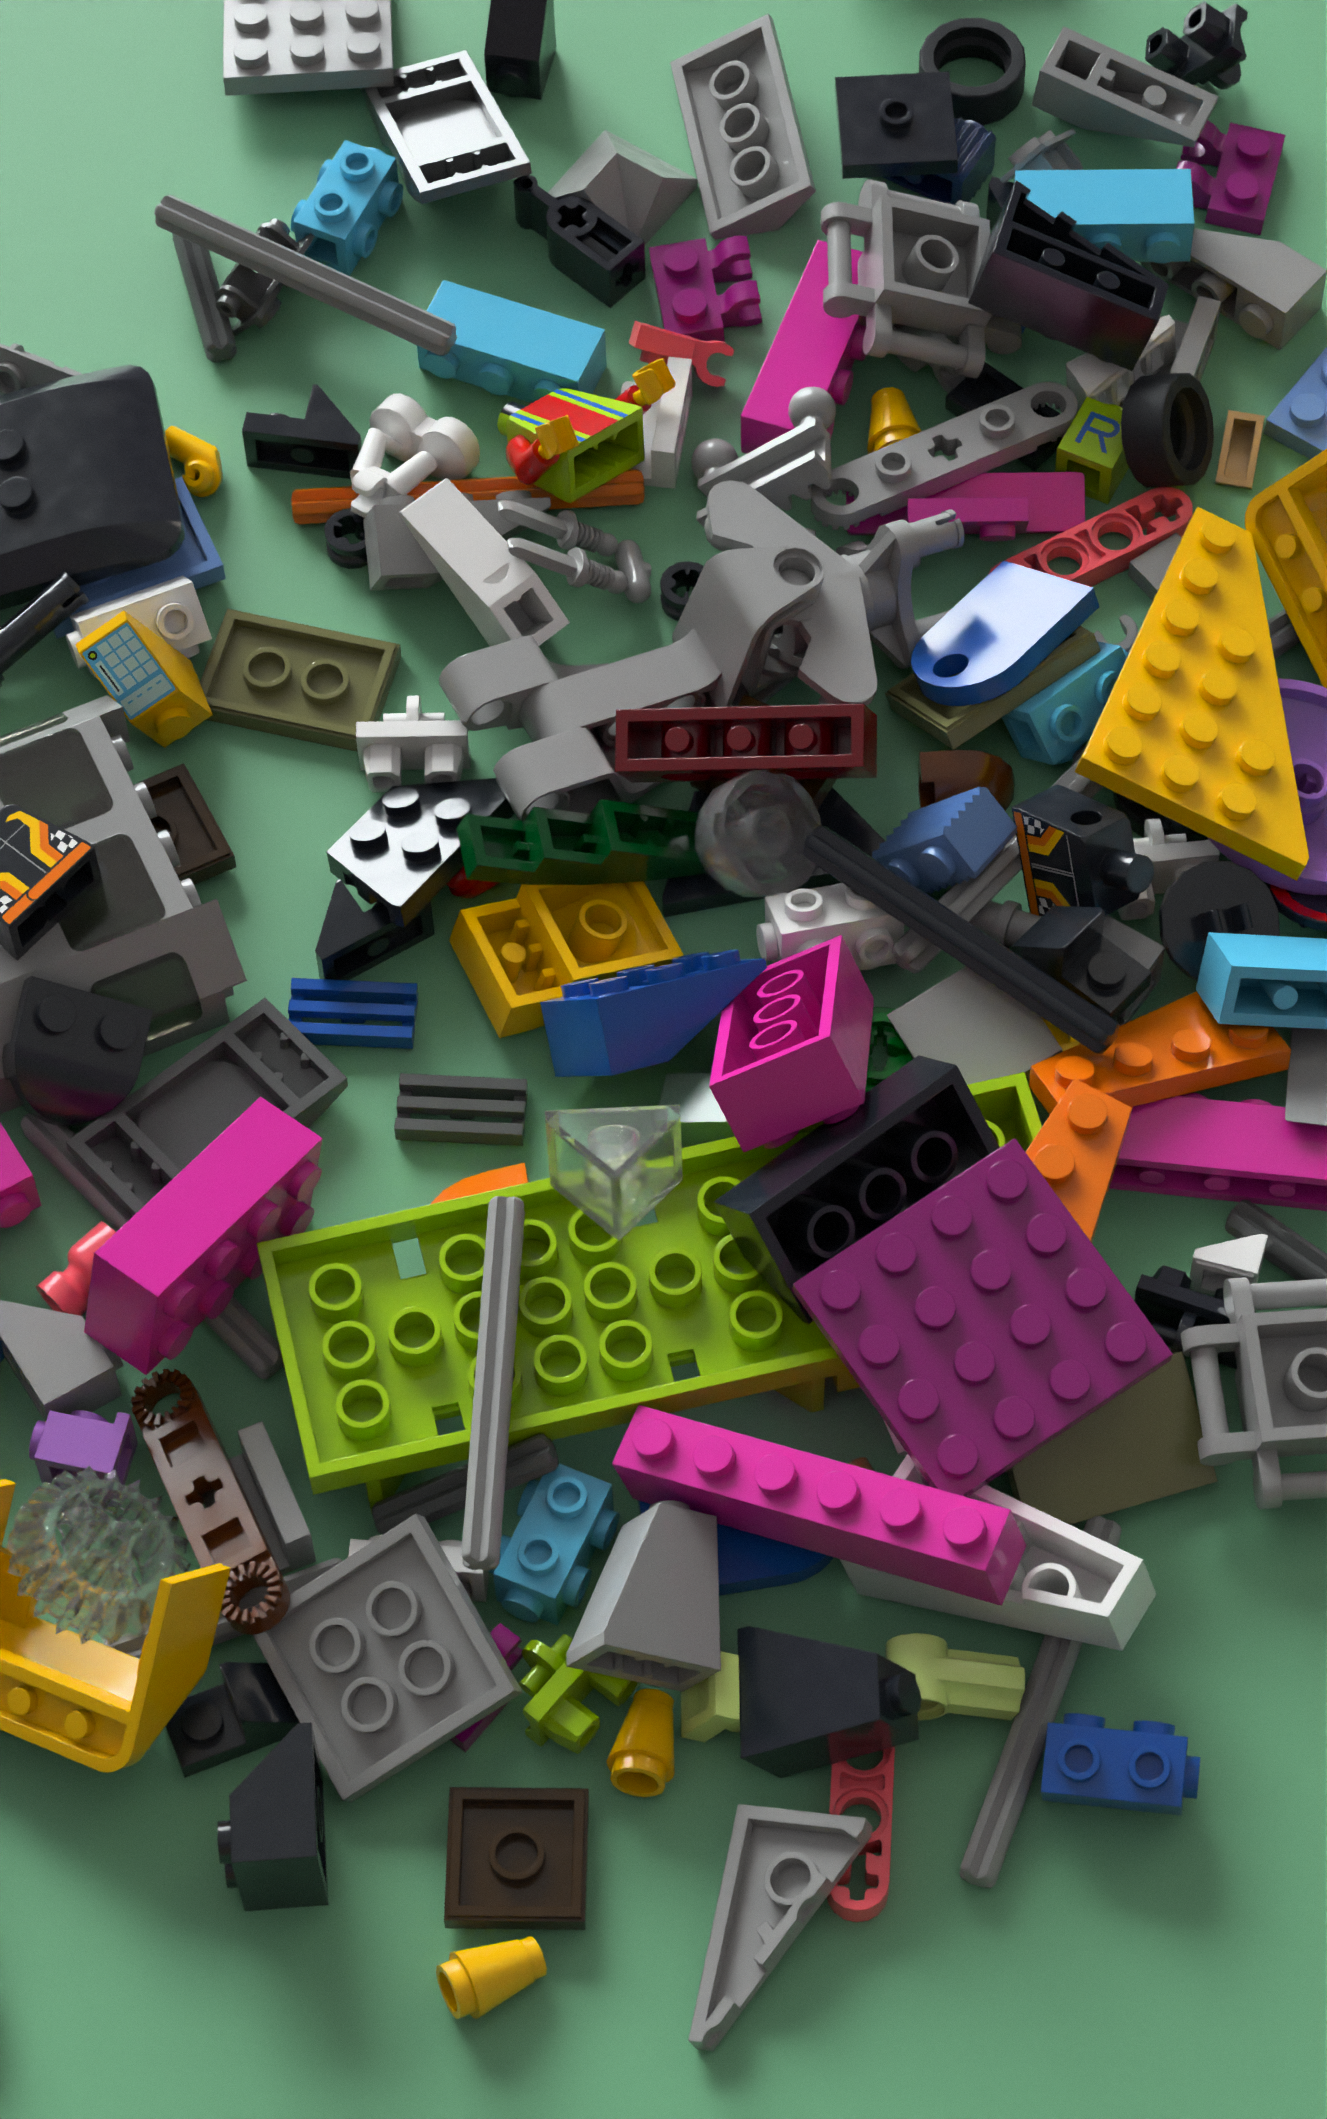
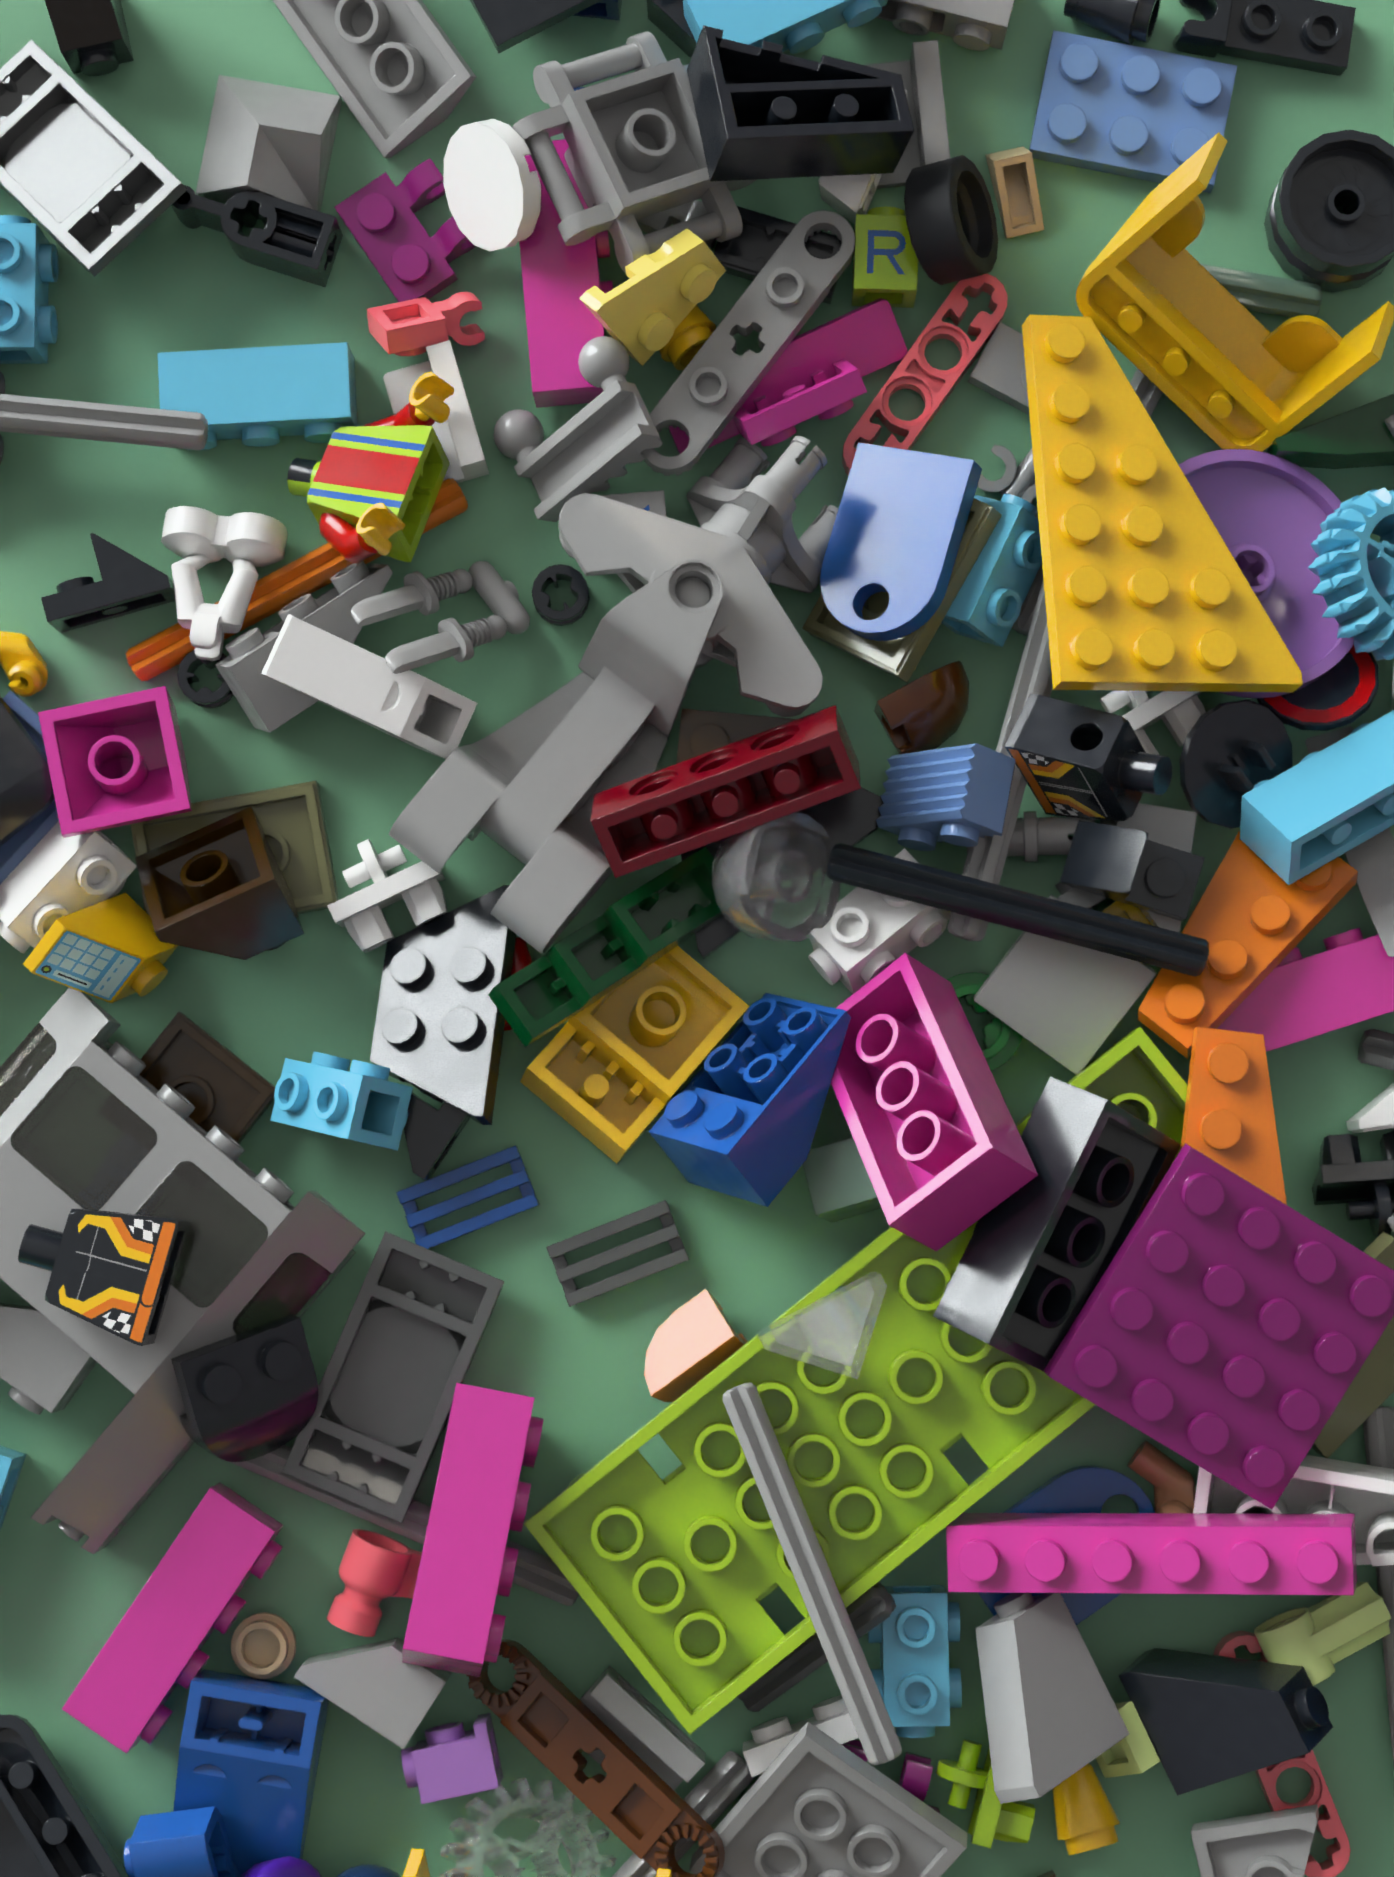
camera: 20 degrees left, 25 degrees up
(242, 541) = (116, 761): none -> dark pink slope
(275, 681) = (220, 890): none -> dark brown slope
(284, 871) = (342, 1103): none -> medium azure brick
(784, 253) = (491, 185): none -> white tile
(880, 377) = (657, 295): none -> light yellow wing

